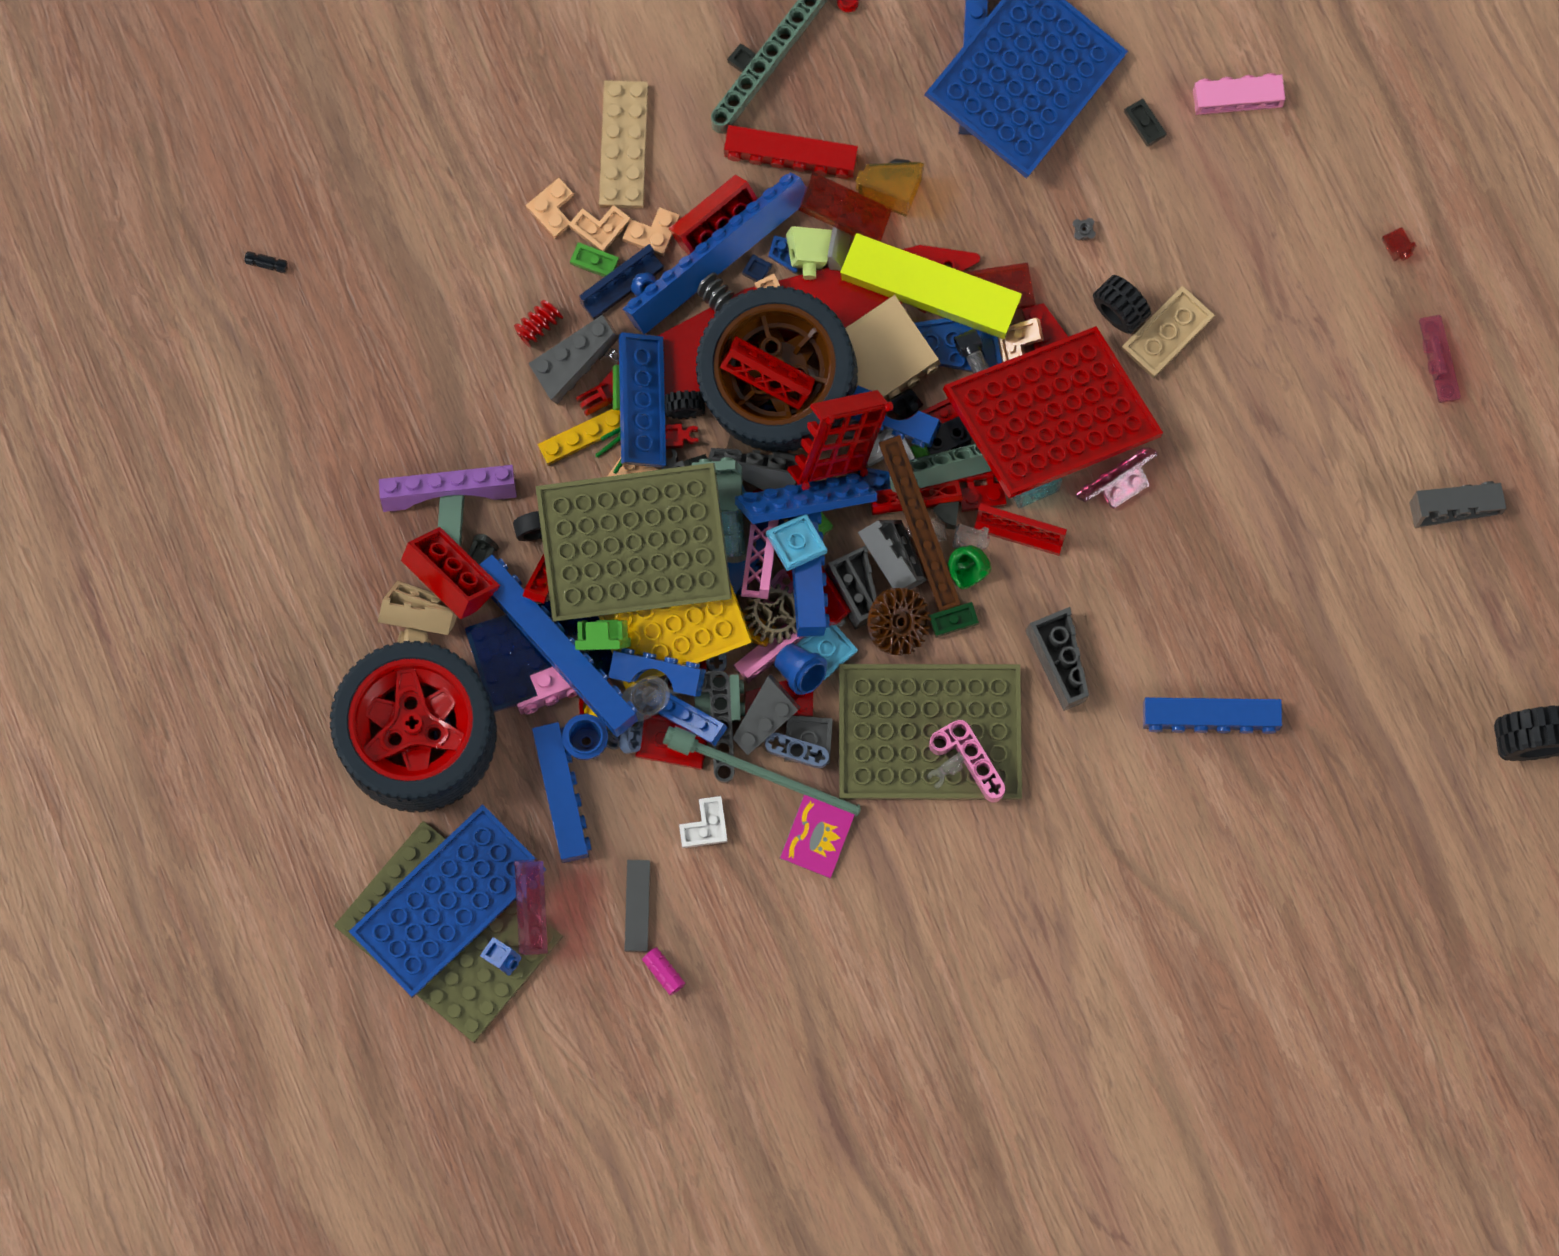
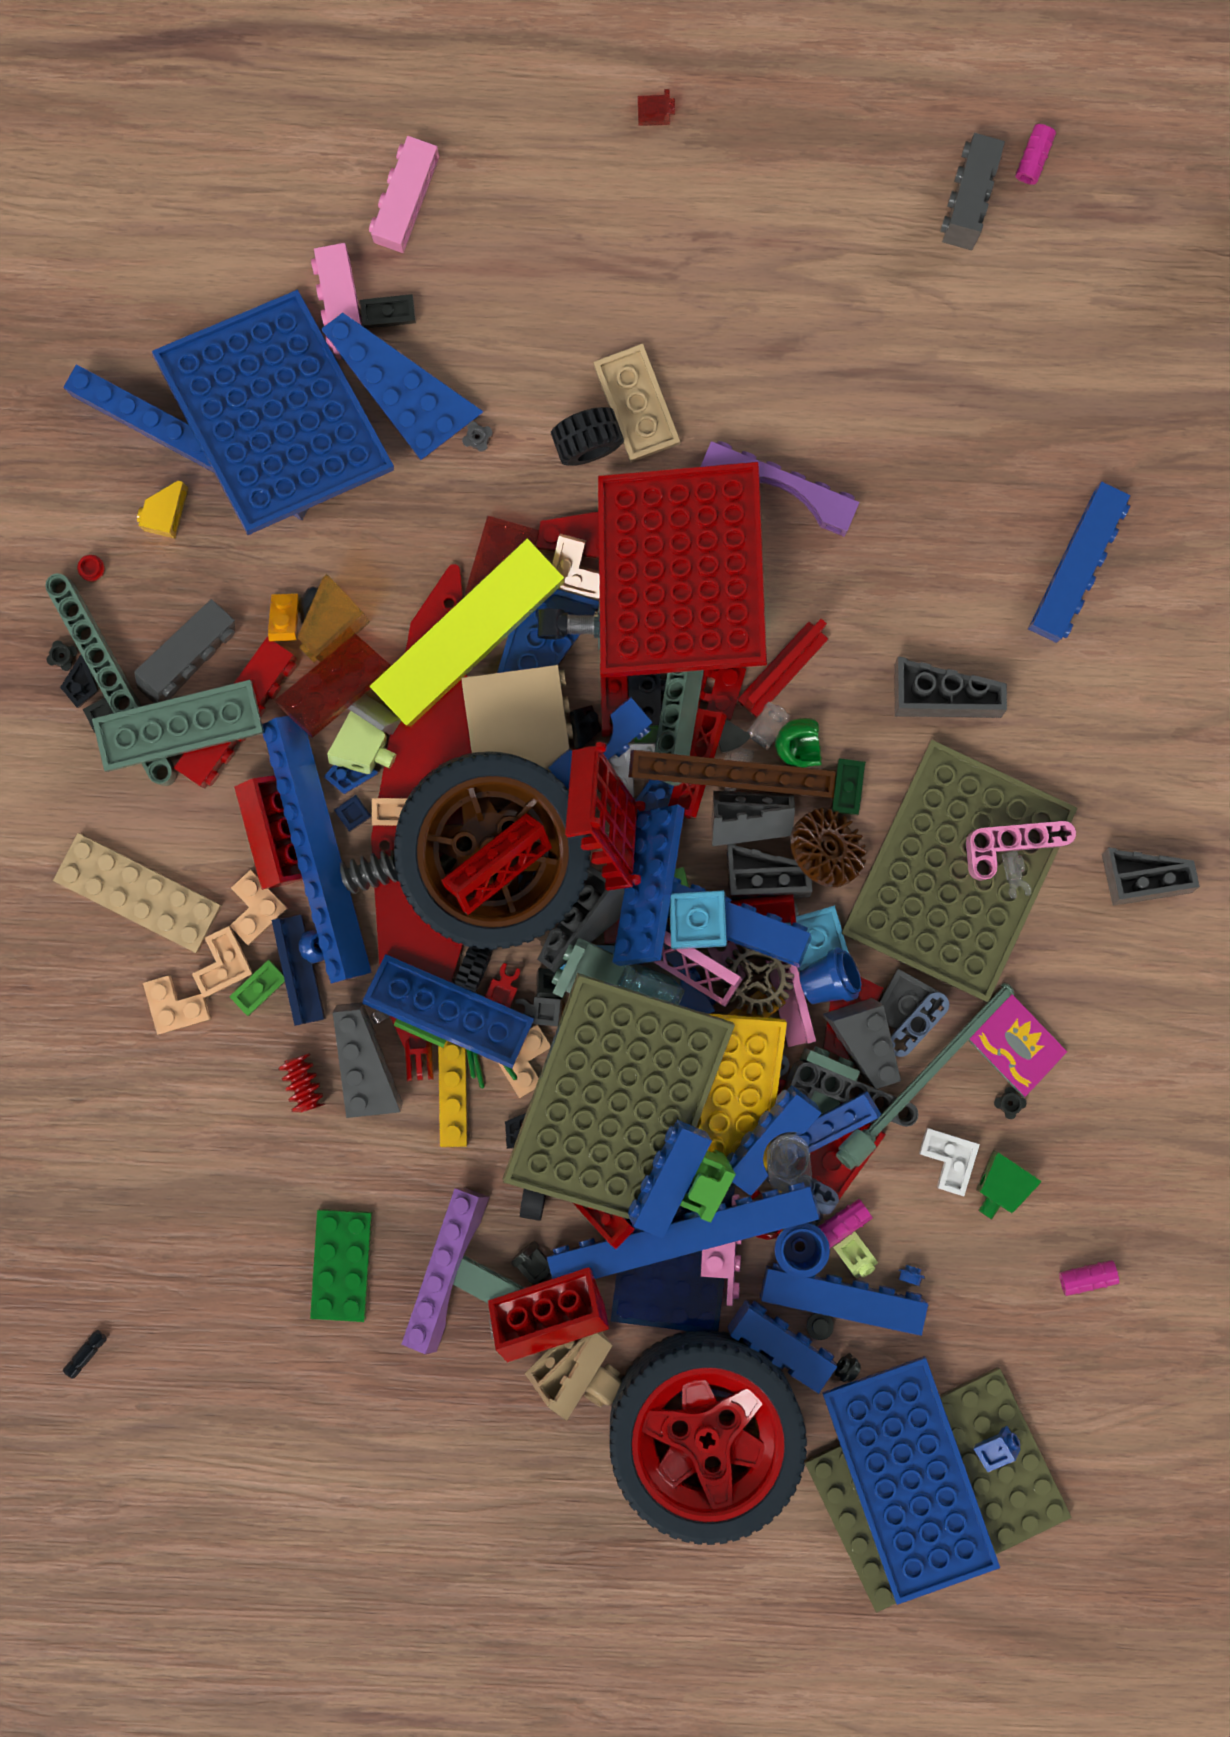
camera: 65 degrees left, 10 degrees up
(415, 414) = (341, 1265): none -> green plate
(505, 760) = (782, 1346): none -> blue wedge
(510, 819) = (847, 1368): none -> pearl dark grey plate
(531, 907) = (966, 1396): clear pink brick -> none
(532, 785) = (819, 1326): none -> pearl dark grey plate
(593, 606) = (669, 1178): none -> blue brick
(598, 787) = (856, 1255): none -> yellowish green bracket
(603, 836) = (911, 1275): none -> blue plate
(619, 766) = (845, 1222): none -> dark pink axle
(637, 906) = (1003, 1272): dark grey tile -> none
(704, 874) = (1004, 1185): none -> green torso
(757, 33) = (79, 683): none -> black piece
(760, 113) = (178, 726): none -> sand green plate
(773, 5) = (54, 655): none -> pearl dark grey plate
(775, 848) = (1010, 1095): none -> pearl dark grey plate
(816, 94) = (184, 653): none -> dark grey wedge
(878, 151) = (283, 617): none -> light orange plate
(916, 33) = (163, 510): none -> yellow slope
(993, 873) = (1145, 877): none -> dark grey wedge
(1088, 167) = (411, 398): none -> blue wing
(1121, 482) = (780, 536): clear pink bracket -> none
(1135, 84) = (335, 285): none -> bright pink brick
(1159, 509) = (829, 508): none -> medium lavender arch
(1439, 358) = (802, 130): clear pink bracket -> none
(1511, 539) = (1035, 154): none -> dark pink axle

